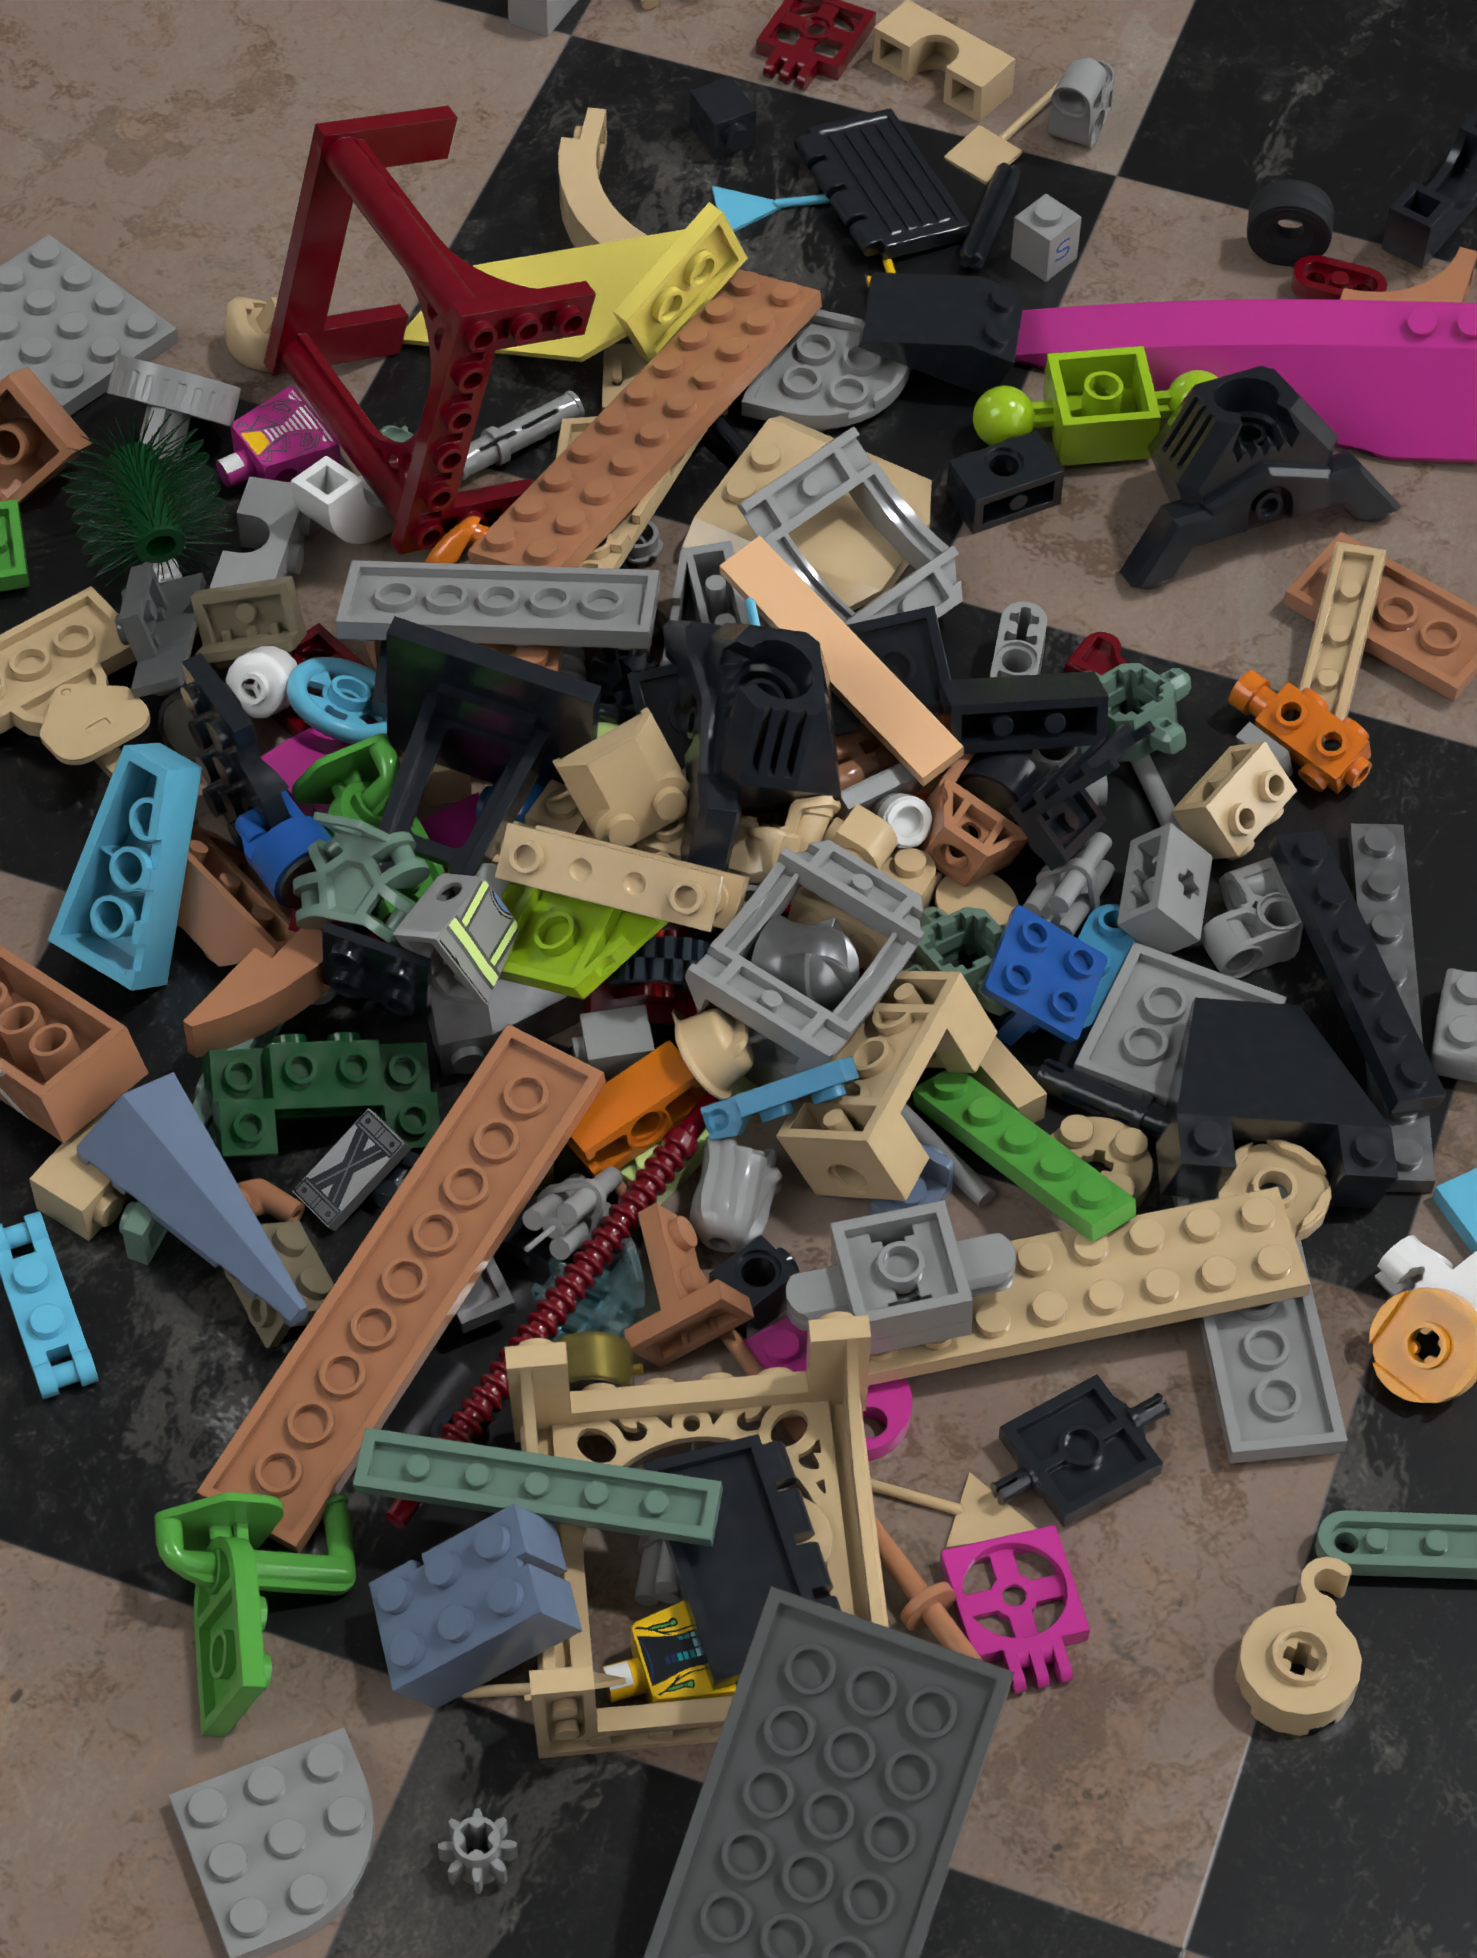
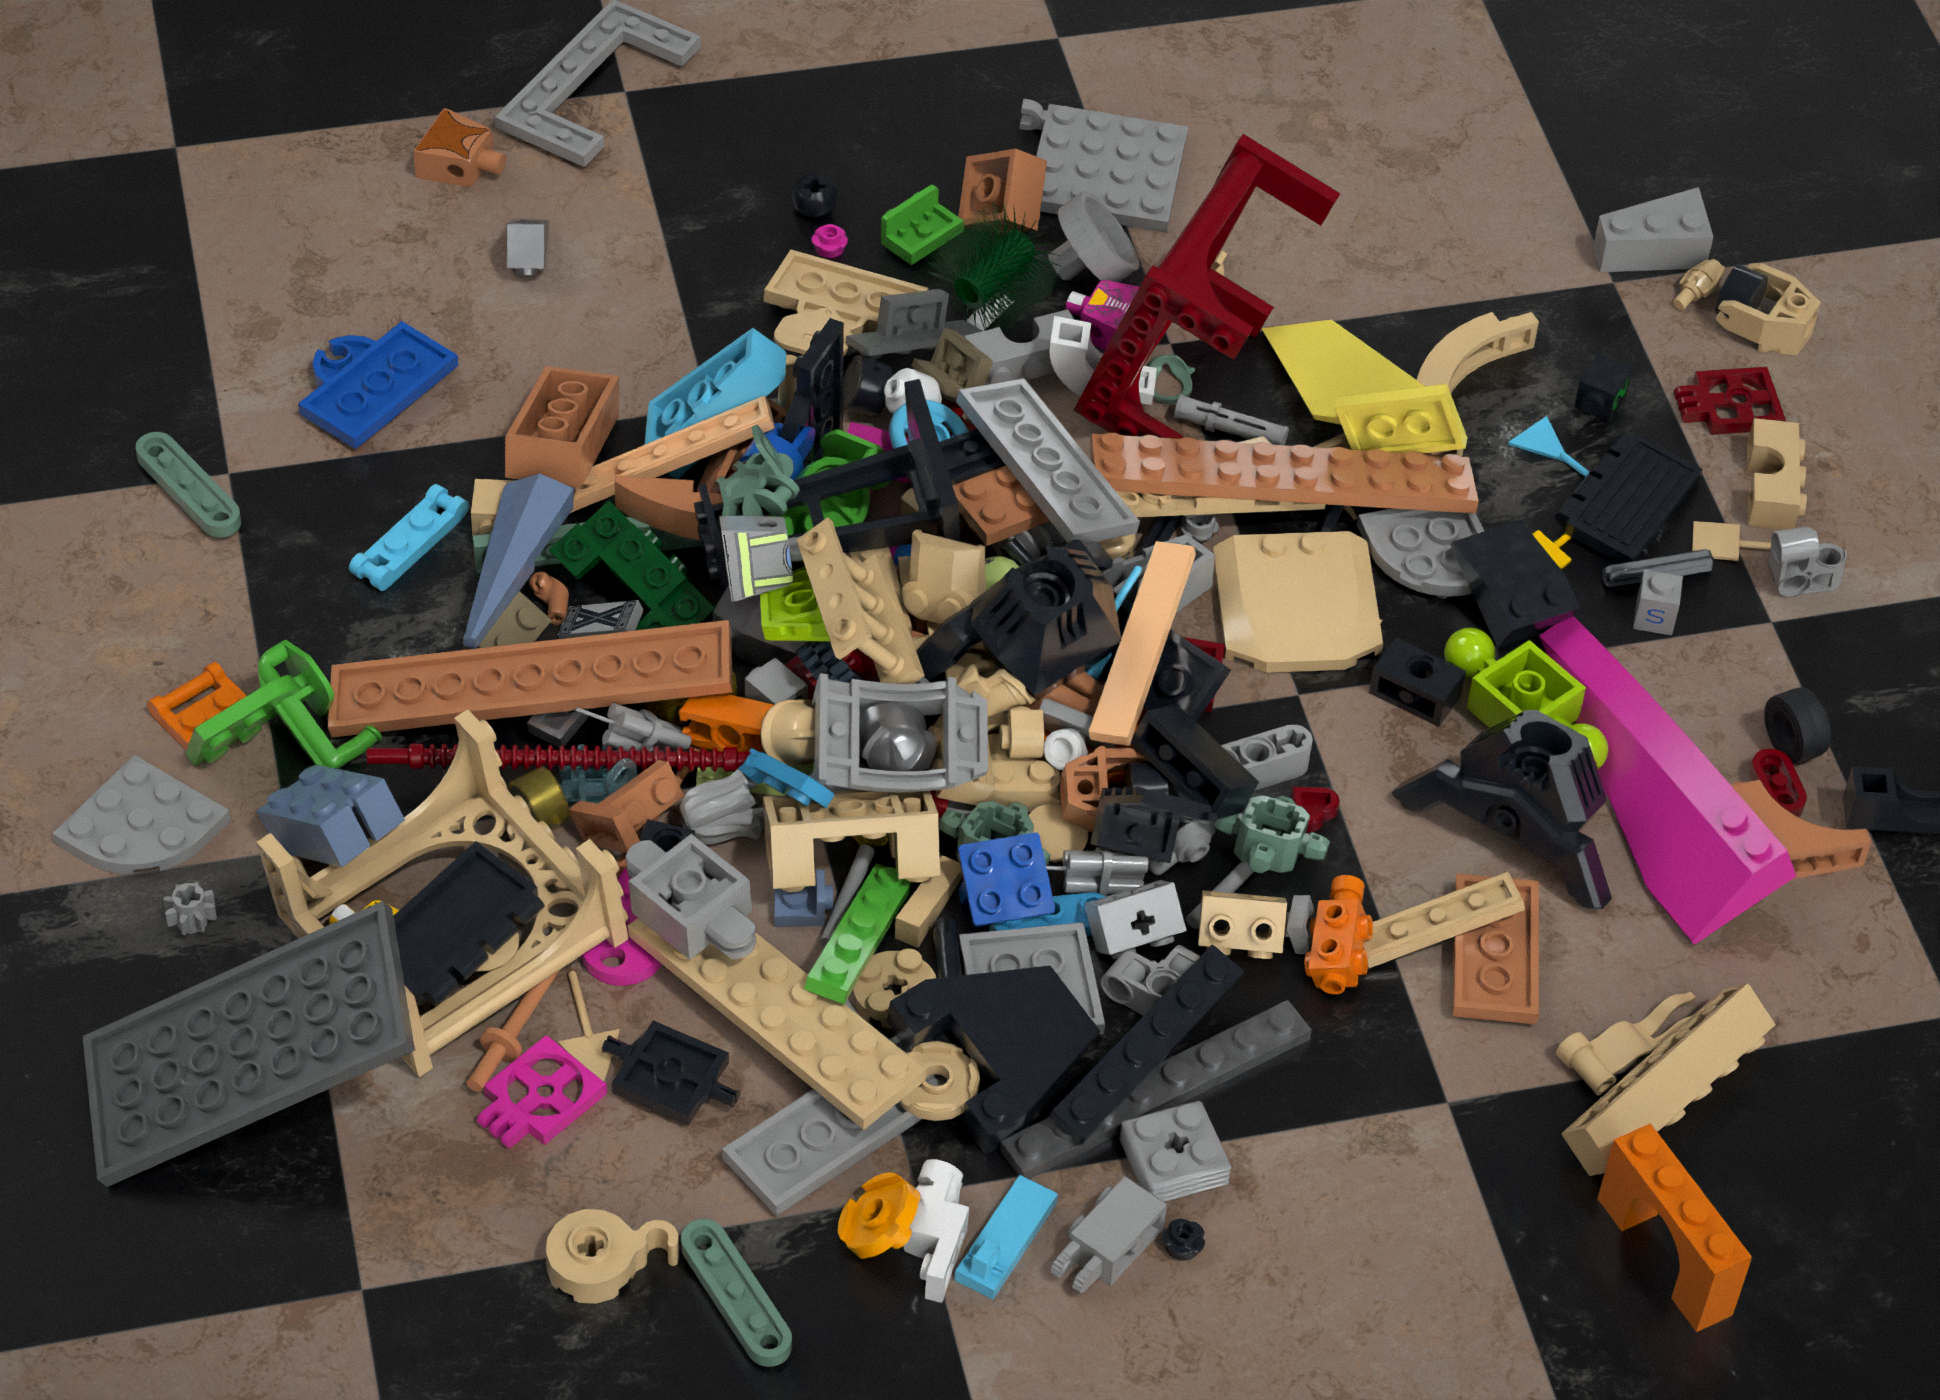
camera: 55 degrees right, 5 degrees down
(161, 1673) = (183, 723): none -> orange plate
(178, 931) = (676, 450): none -> light nougat tile
(454, 542) = (1084, 429): orange arm -> none
(547, 1485) = (418, 797): sand green plate -> none
(820, 481) = (1280, 567): light grey wedge -> none

